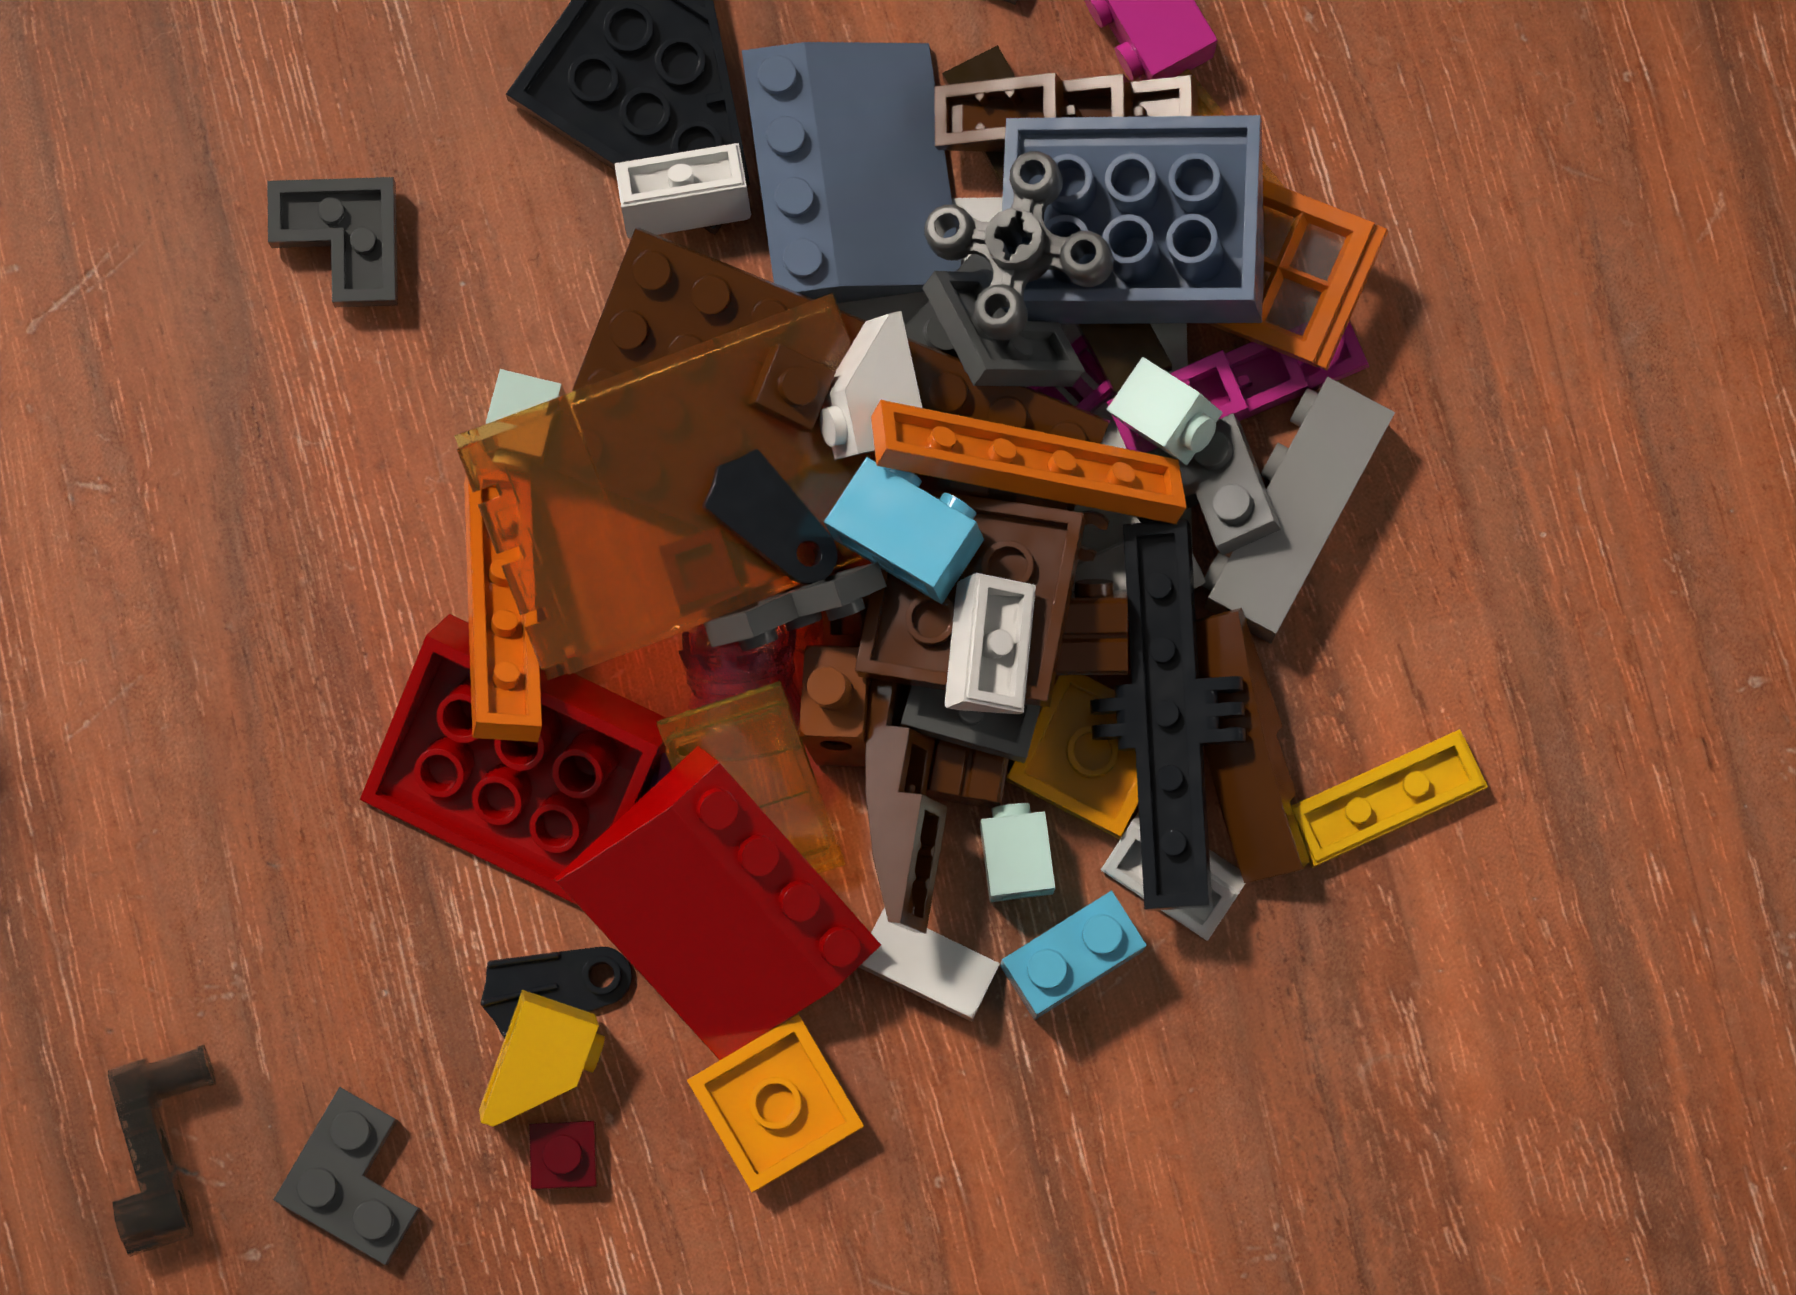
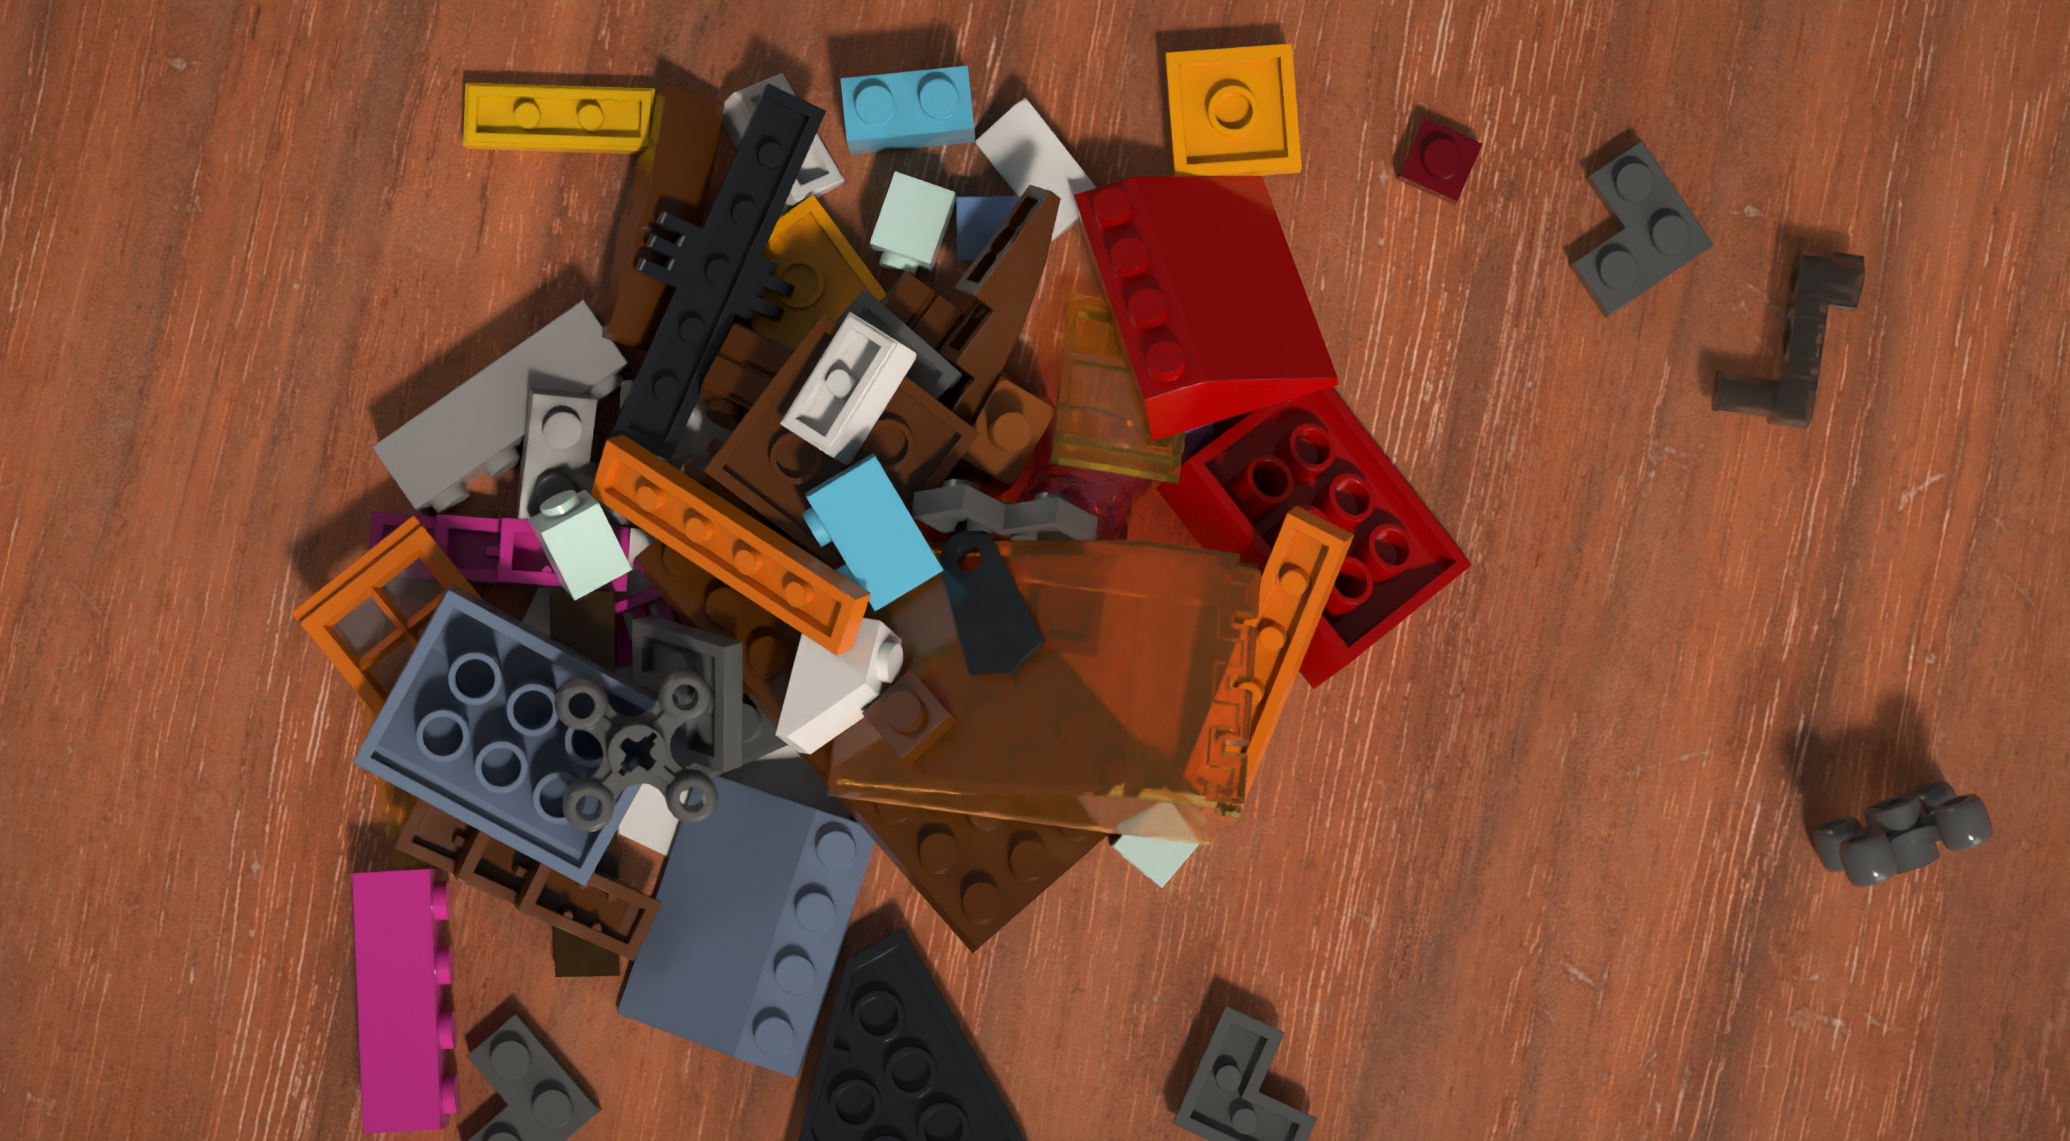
camera: 155 degrees left, 5 degrees up
(540, 1057) = (1422, 250): yellow slope -> none
(554, 975) = (1383, 315): black piece -> none
(683, 190) = (913, 977): white slope -> none
(956, 890) = (978, 220): none -> medium blue tile

